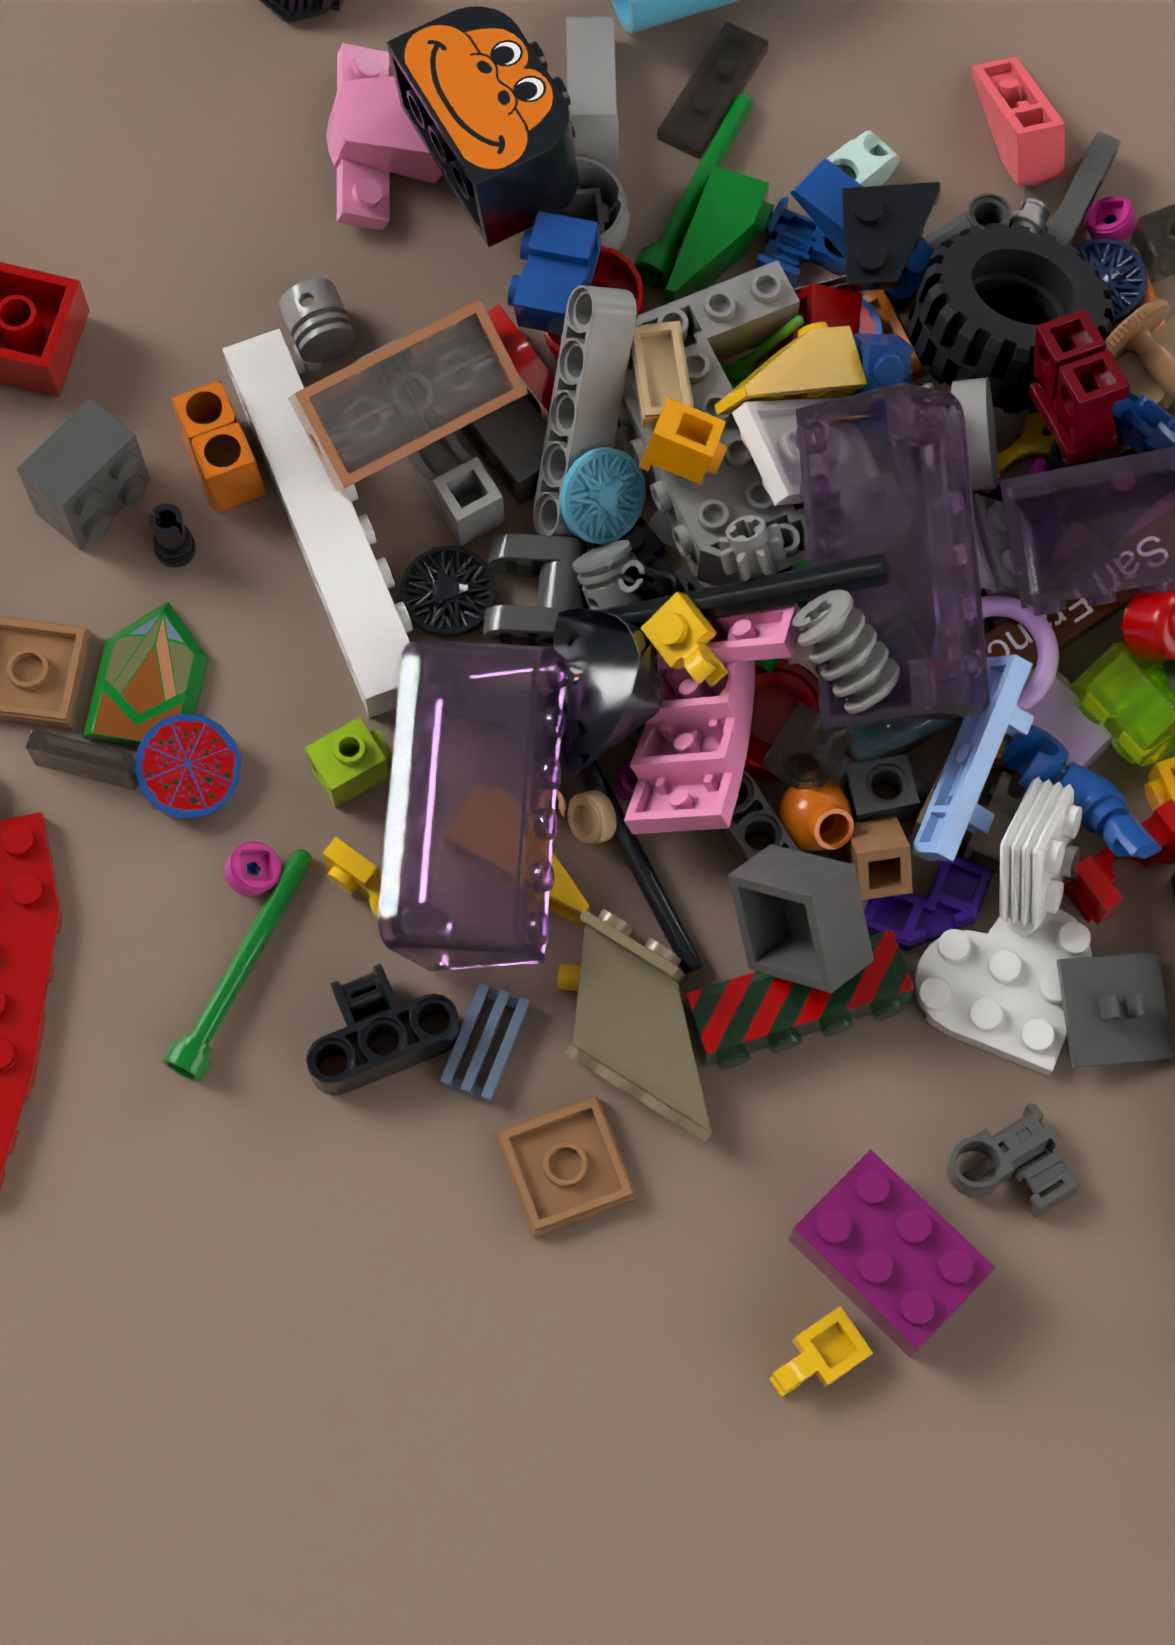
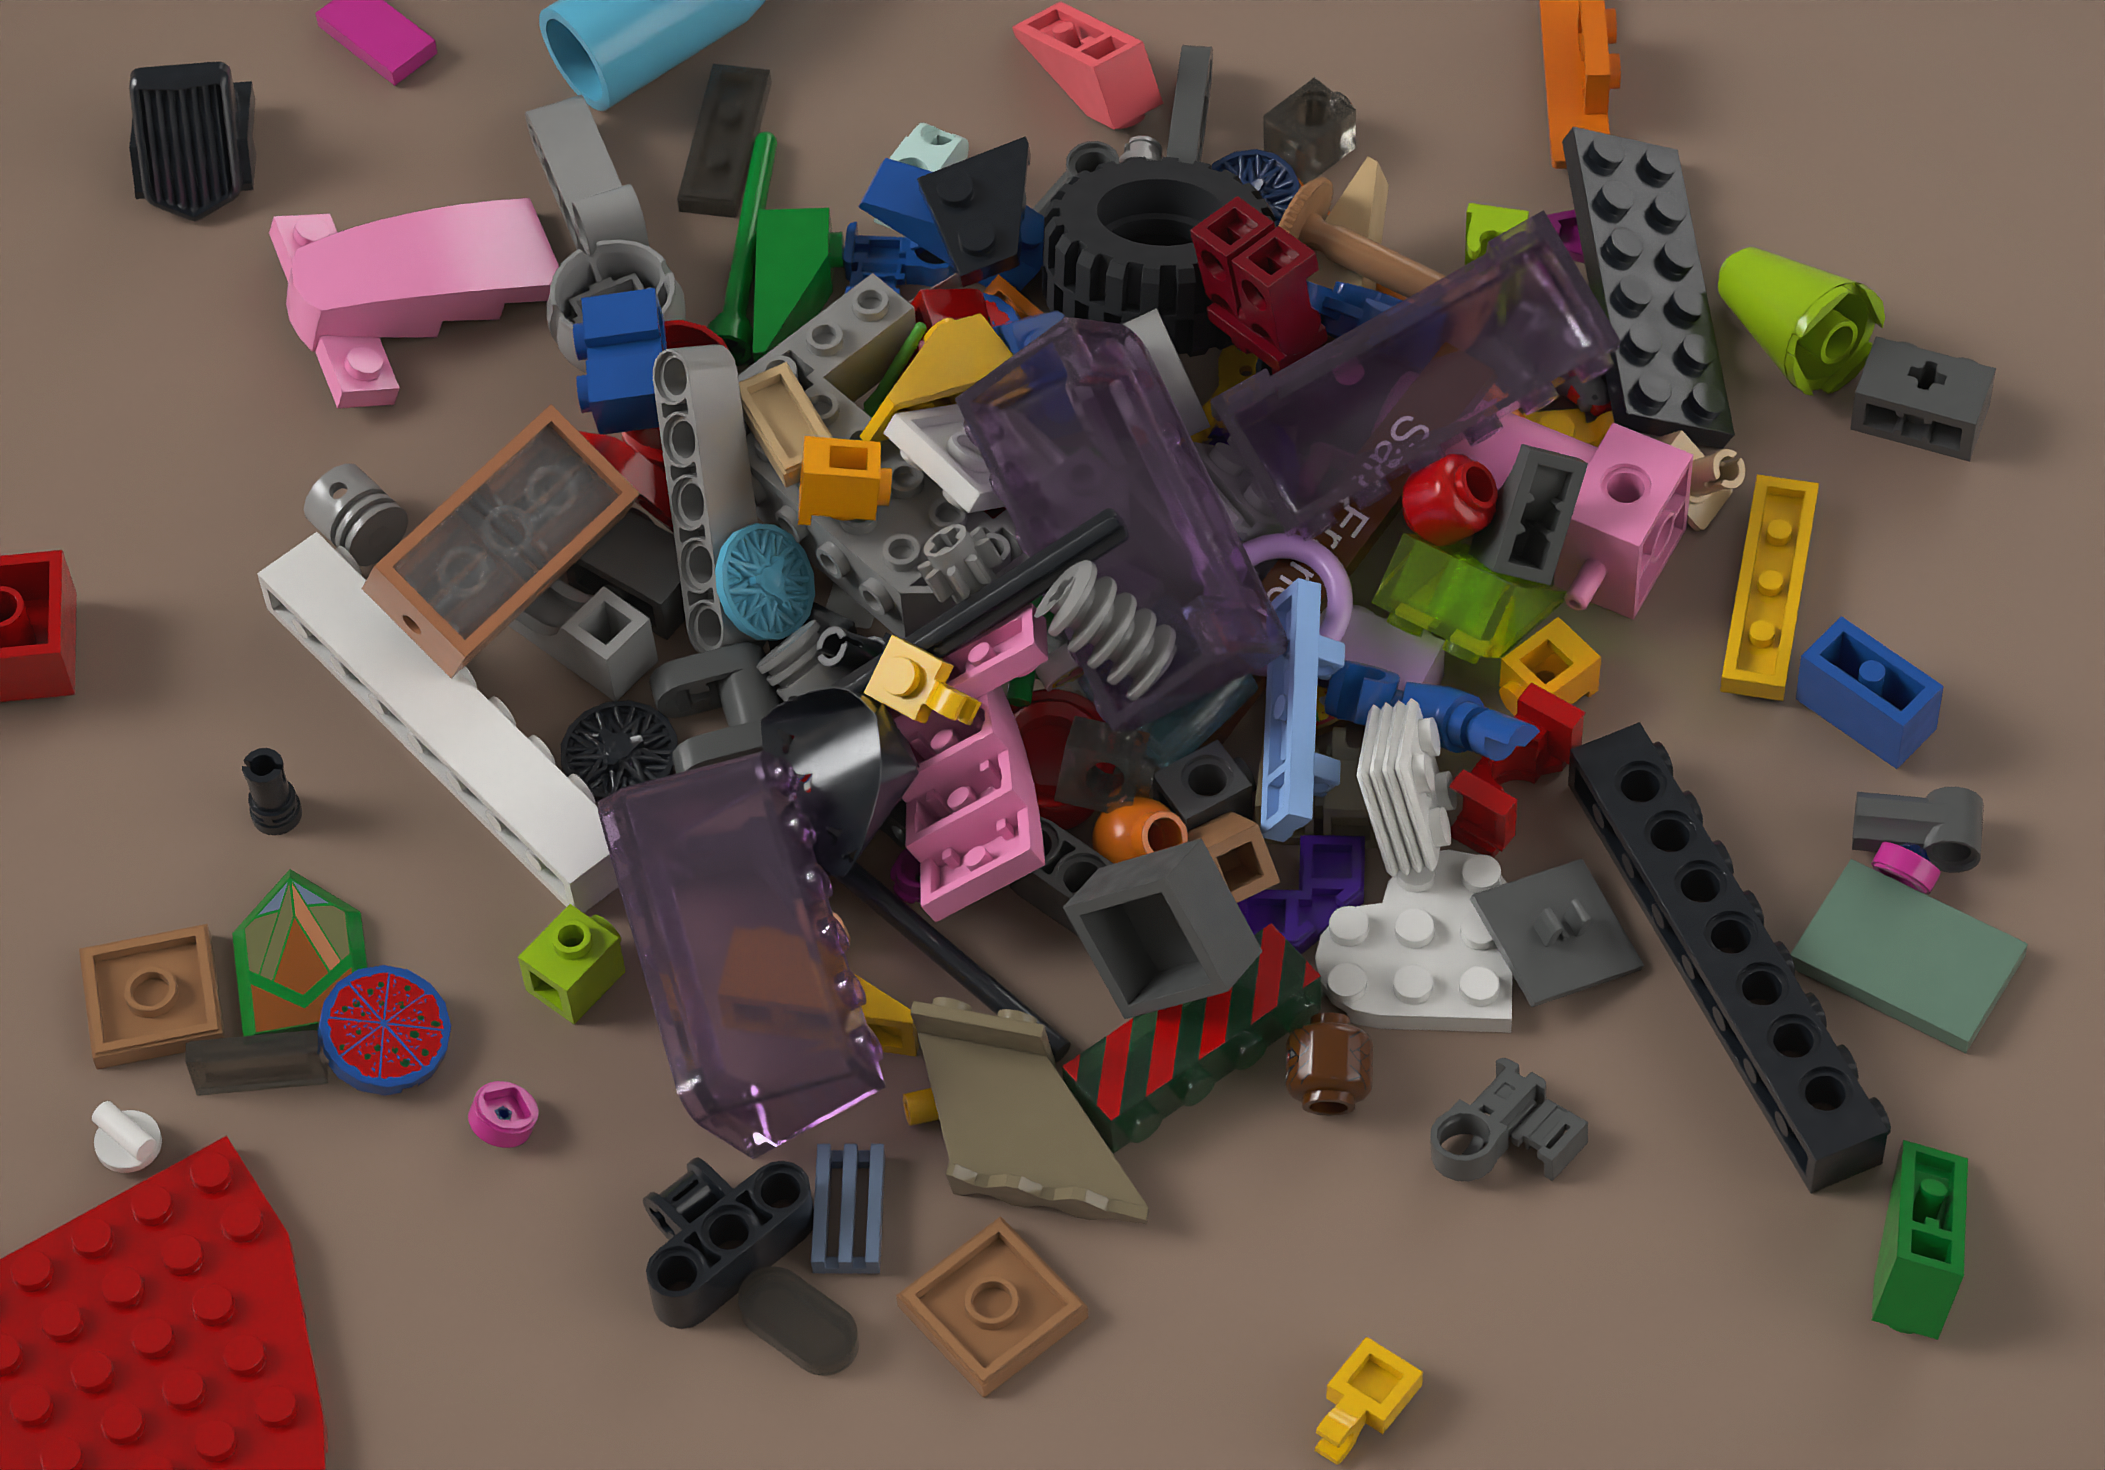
camera: 15 degrees left, 15 degrees down
(85, 474) = (145, 755): dark grey piece -> none
(191, 1053) = (505, 1335): green piece -> none
(221, 486) = (302, 720): orange piece -> none
(353, 872) = (631, 1076): yellow plate -> none
(414, 1123) = (798, 1320): none -> clear smoke tile
(489, 117) = (483, 224): brick -> none
(592, 817) = (881, 929): tan tile -> none
(890, 1253) = (1401, 1263): magenta brick -> none
(895, 1060) = (1329, 1064): none -> reddish brown head
(1111, 218) = (1232, 130): dark pink tile -> none

